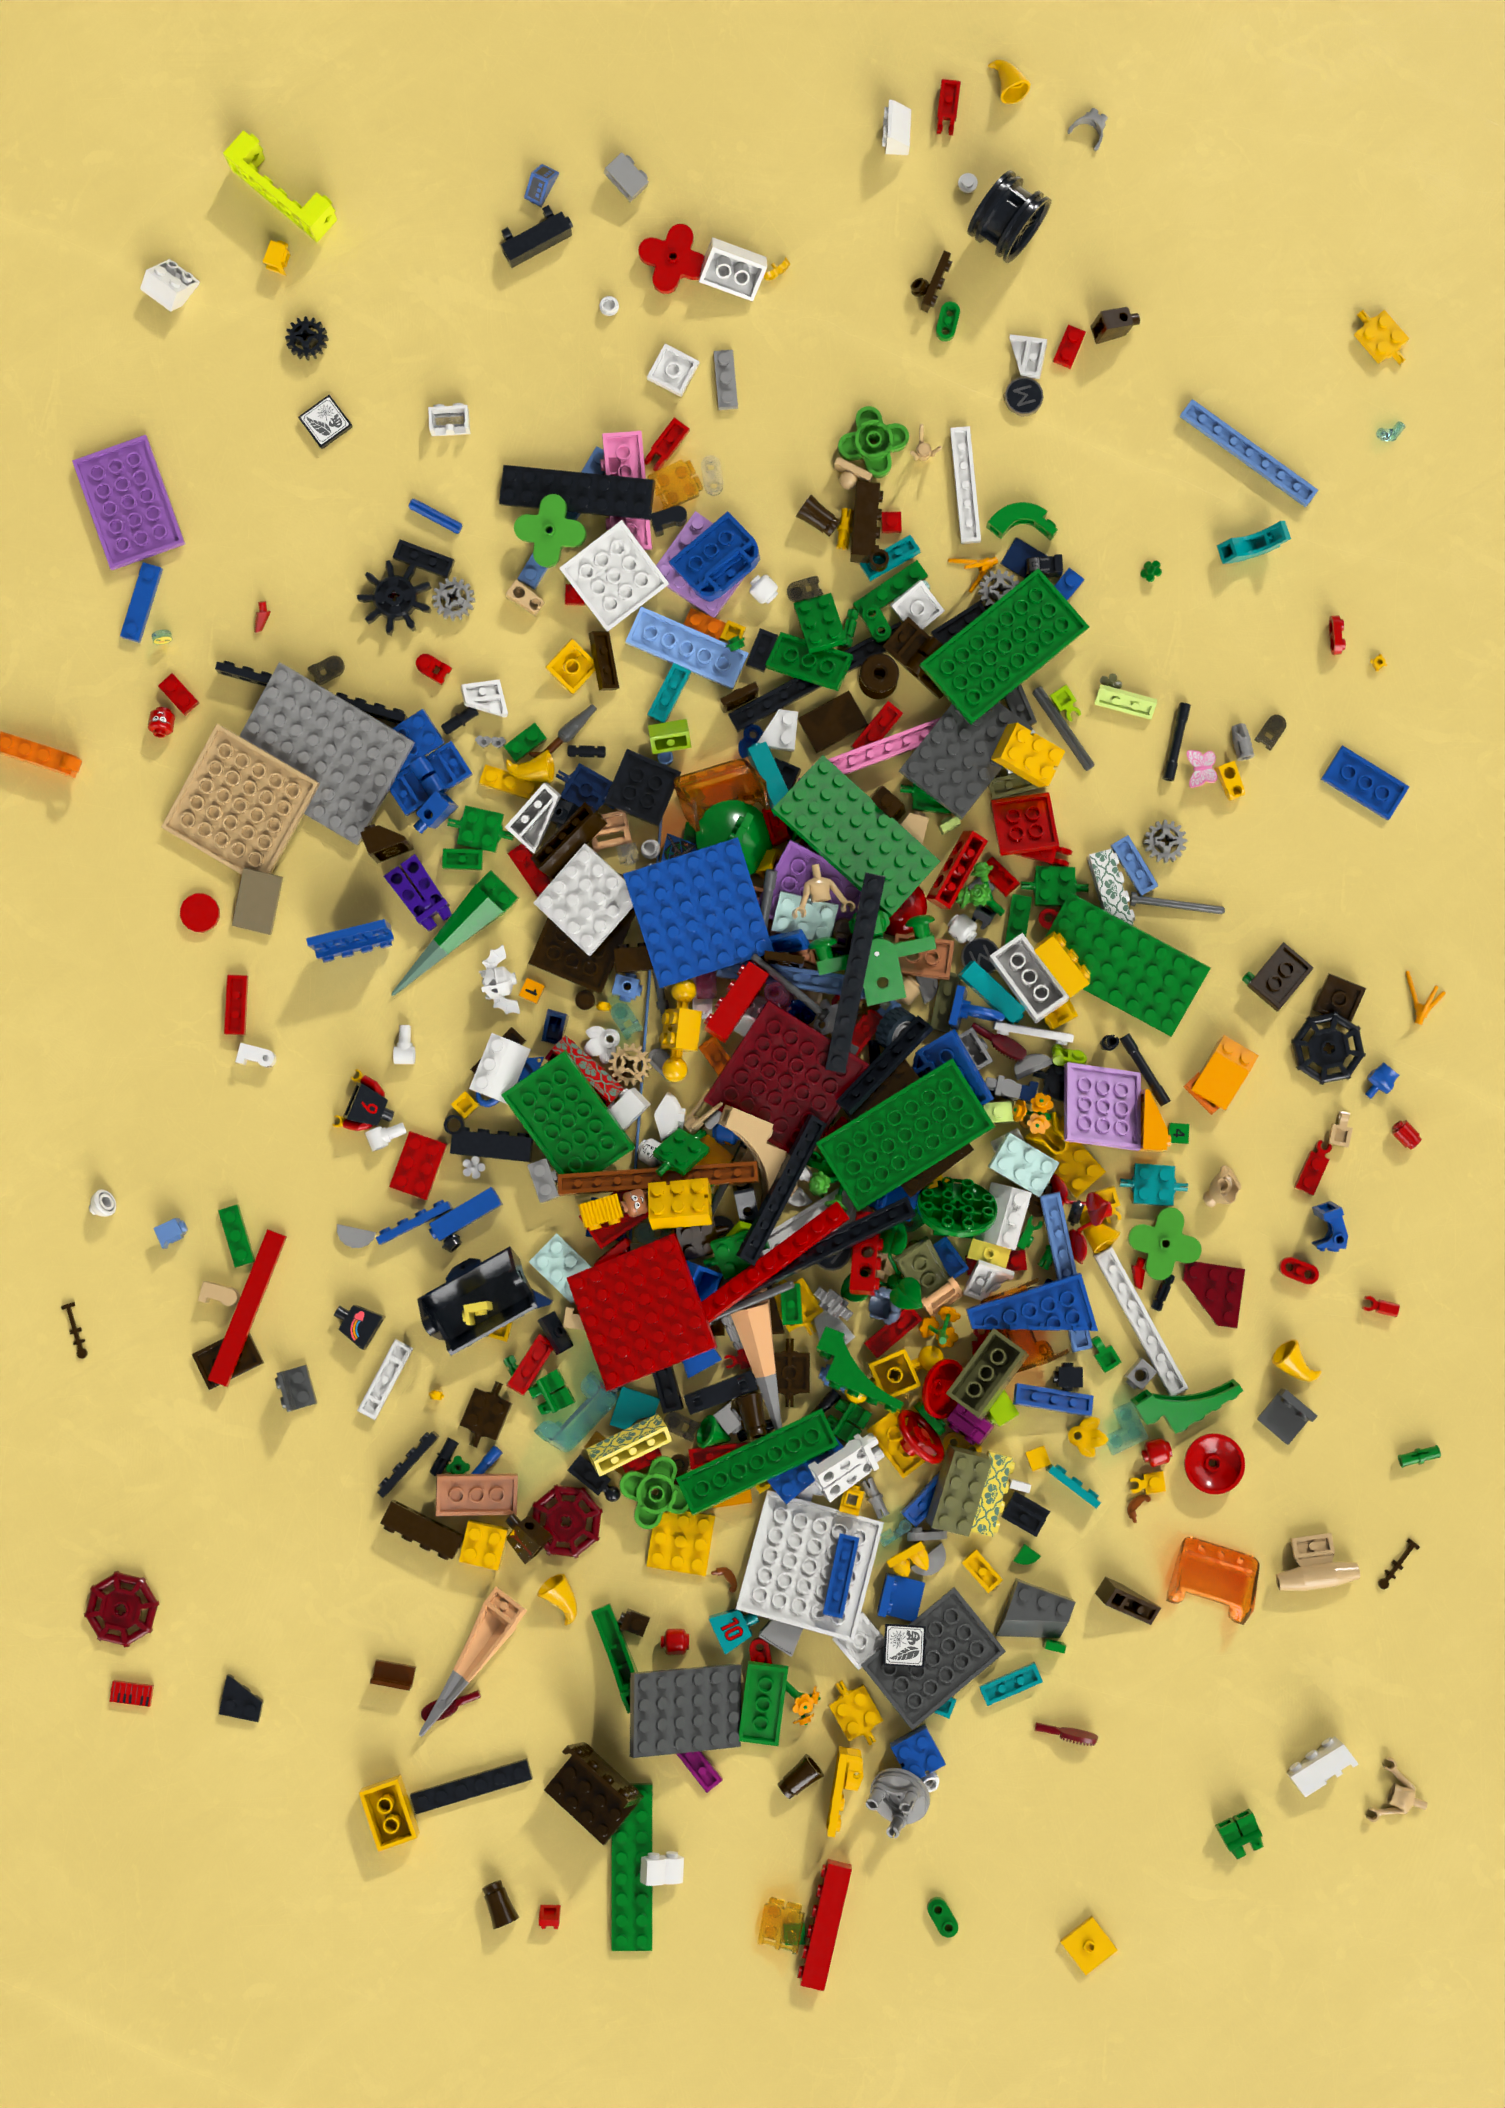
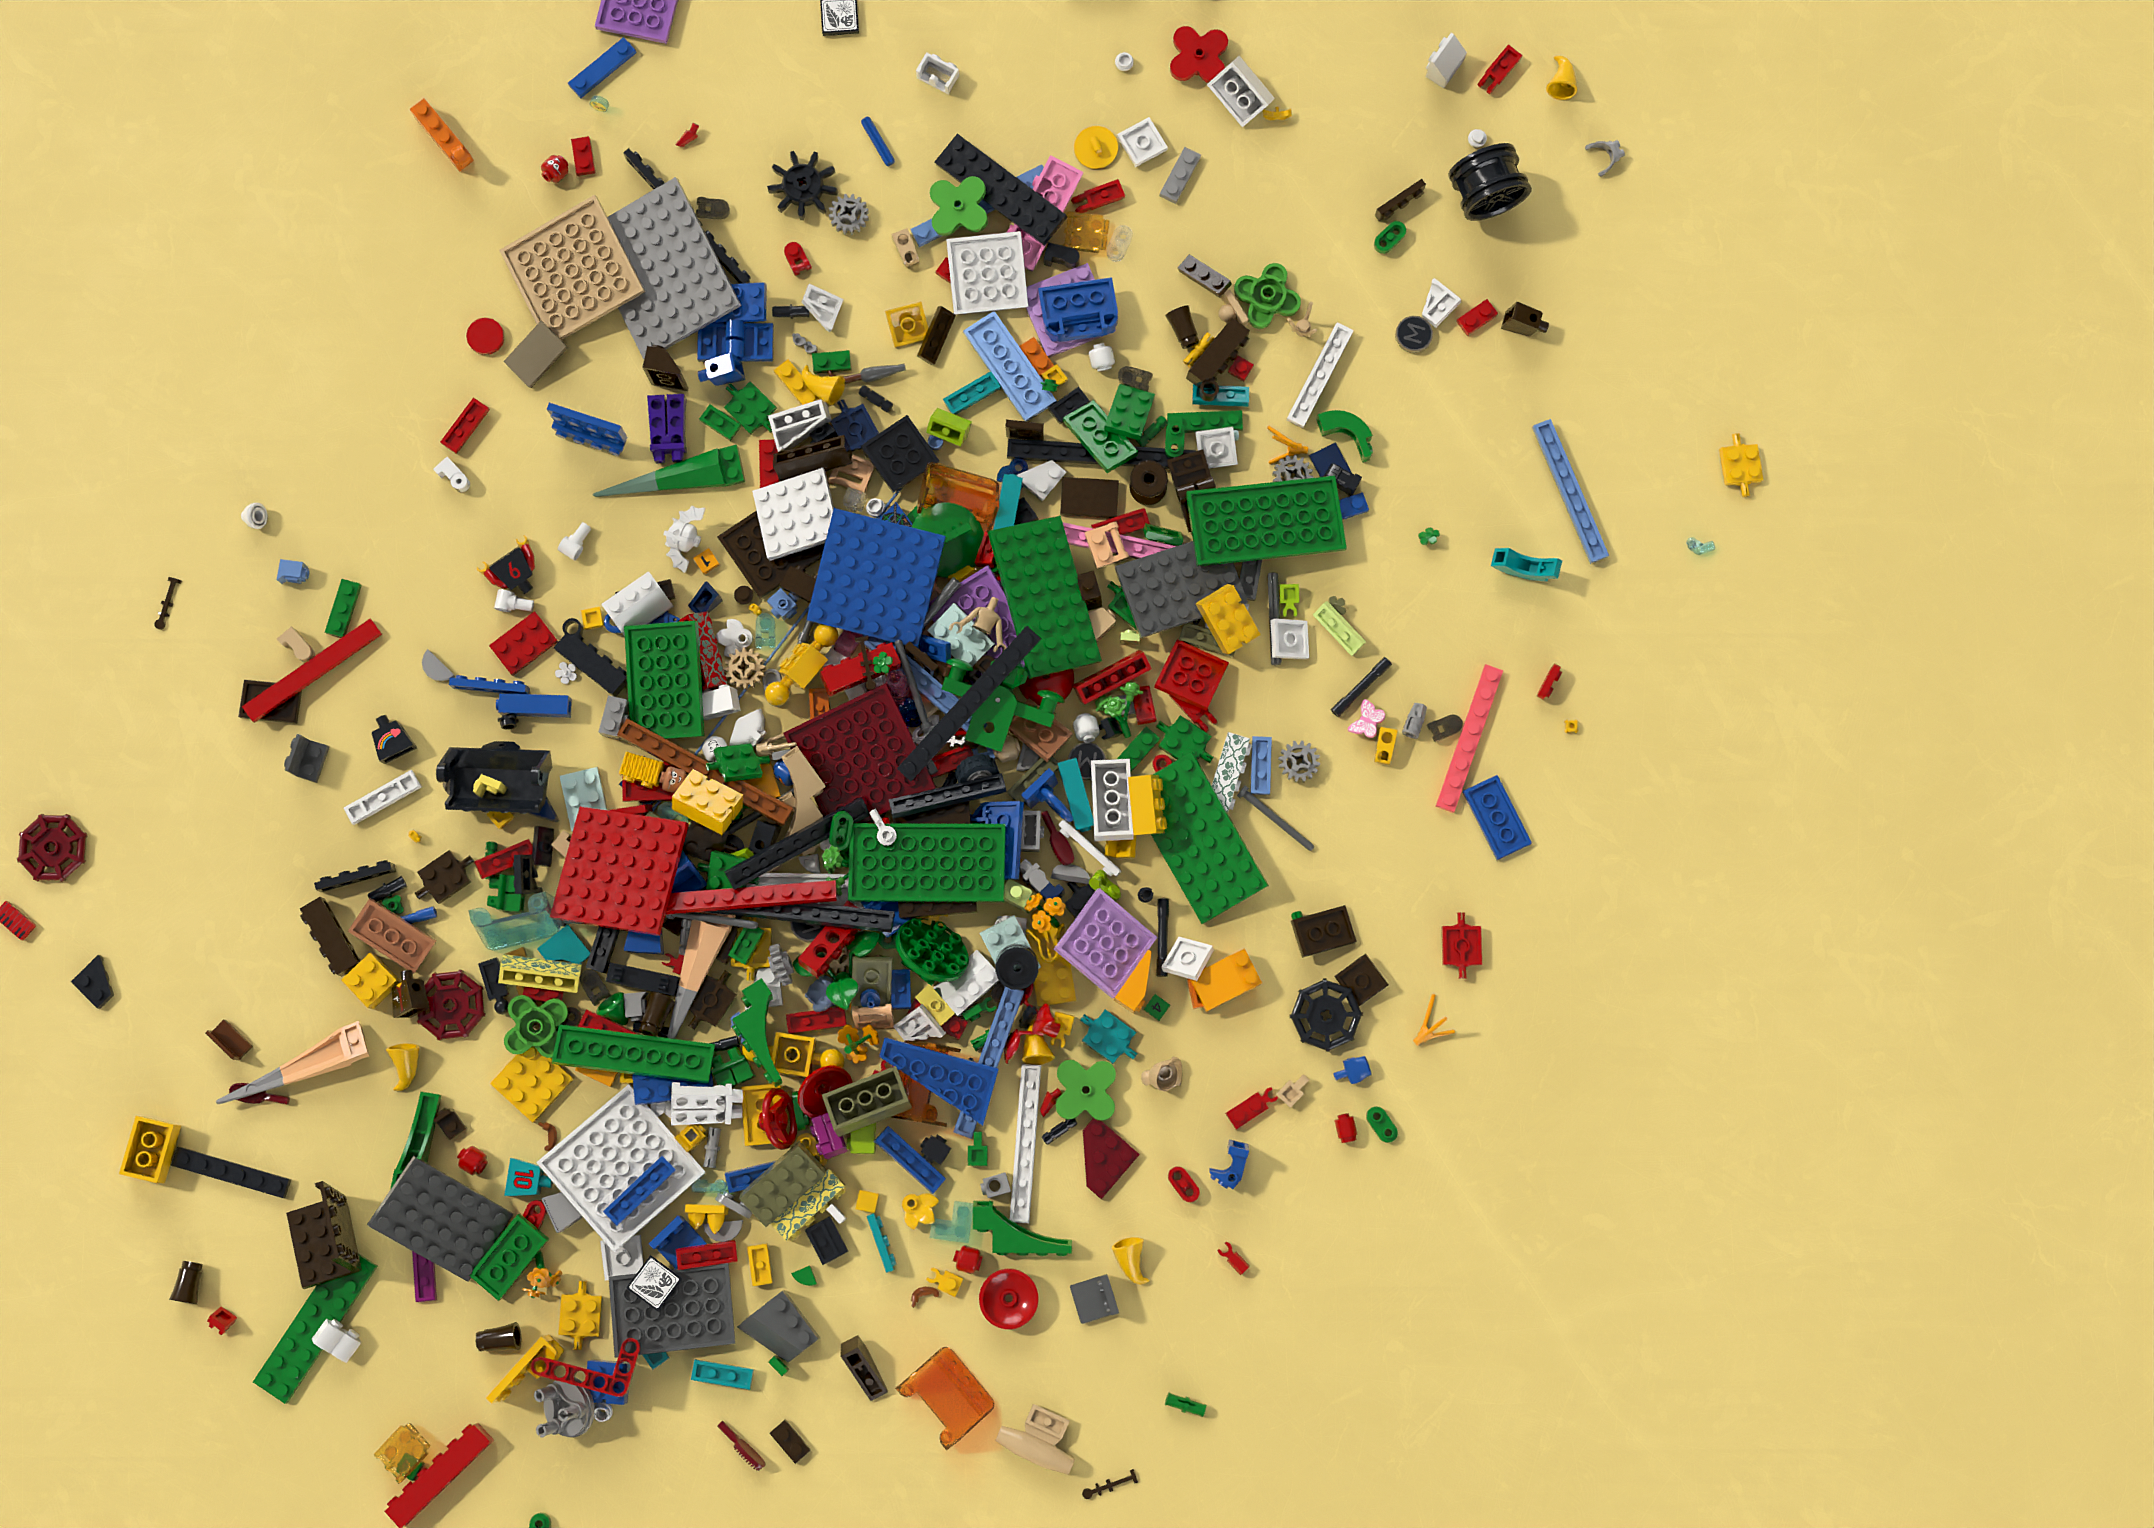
camera: 30 degrees right, 5 degrees down
(423, 559) = (846, 168): black plate -> none
(559, 1368) = (525, 875): none -> black wing
(634, 400) = (1096, 147): none -> yellow shield
(754, 984) = (881, 663): none -> green plant
(756, 1010) = (870, 684): none -> dark brown piece
(807, 458) = (1204, 276): none -> plate
(812, 1153) = (841, 829): none -> green plate
(854, 1133) = (886, 834): none -> white plate
(874, 760) = (1100, 546): none -> light nougat plate
(905, 1758) = (588, 1383): none -> red beam
(919, 287) = (1384, 196): dark brown plate -> none
(919, 715) = (1157, 533): none -> green plate
(930, 1283) = (870, 998): none -> blue tile
(931, 1592) = (706, 1255): none -> red plate
(957, 623) = (1230, 480): black plate -> none
(1040, 1186) = (1017, 978): none -> black wheel
(1089, 738) = (1289, 639): none -> white plate
(1104, 1702) = (790, 1441): none -> dark brown plate
(1180, 1074) = (1187, 958): none -> white plate
(1298, 728) = (1469, 738): none -> coral plate
(1405, 914) = (1461, 945): none -> red plate
(1434, 1112) = (1379, 1126): none -> green plate

